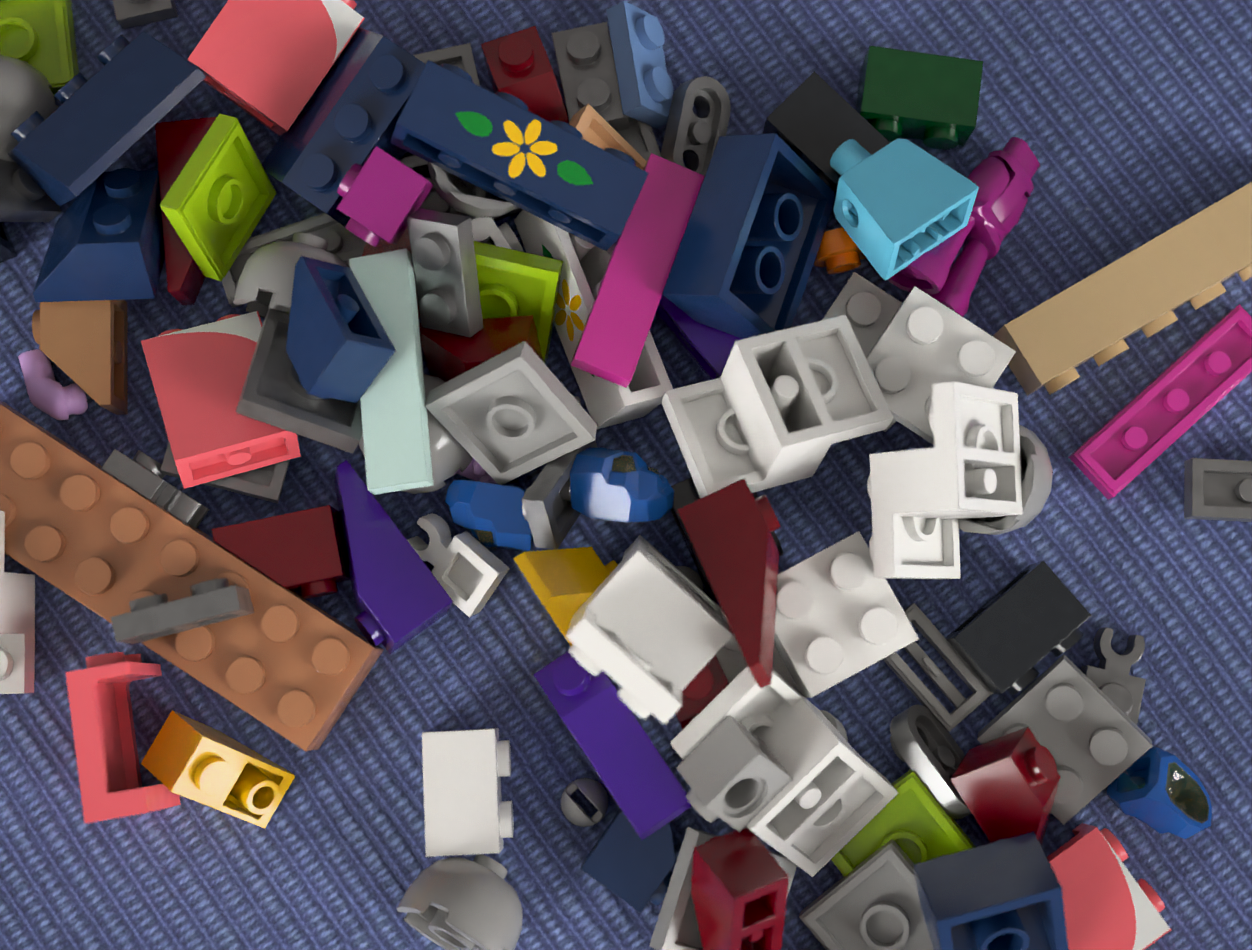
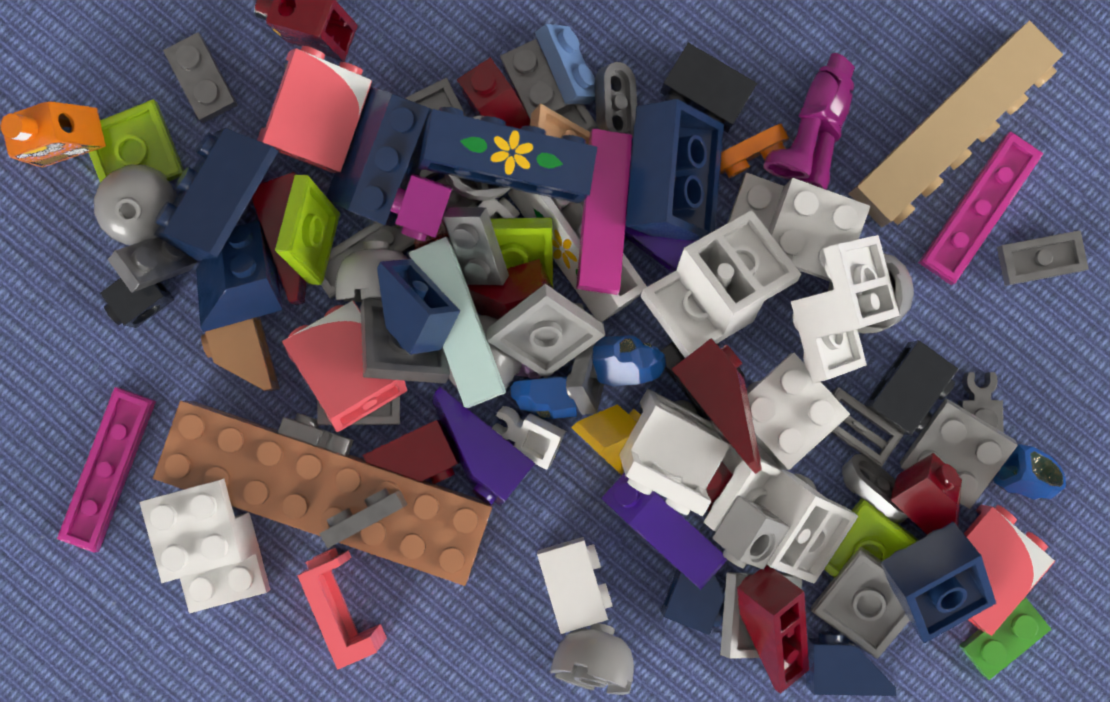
camera: 15 degrees left, 5 degrees up
(46, 392) = (223, 389): lavender arm -> none
(216, 770) = (406, 611): yellow slope -> none
(593, 792) = (658, 564): light grey hinge -> none
(898, 202) = (768, 122): medium azure torso -> none
(920, 96) = (762, 40): dark green brick -> none

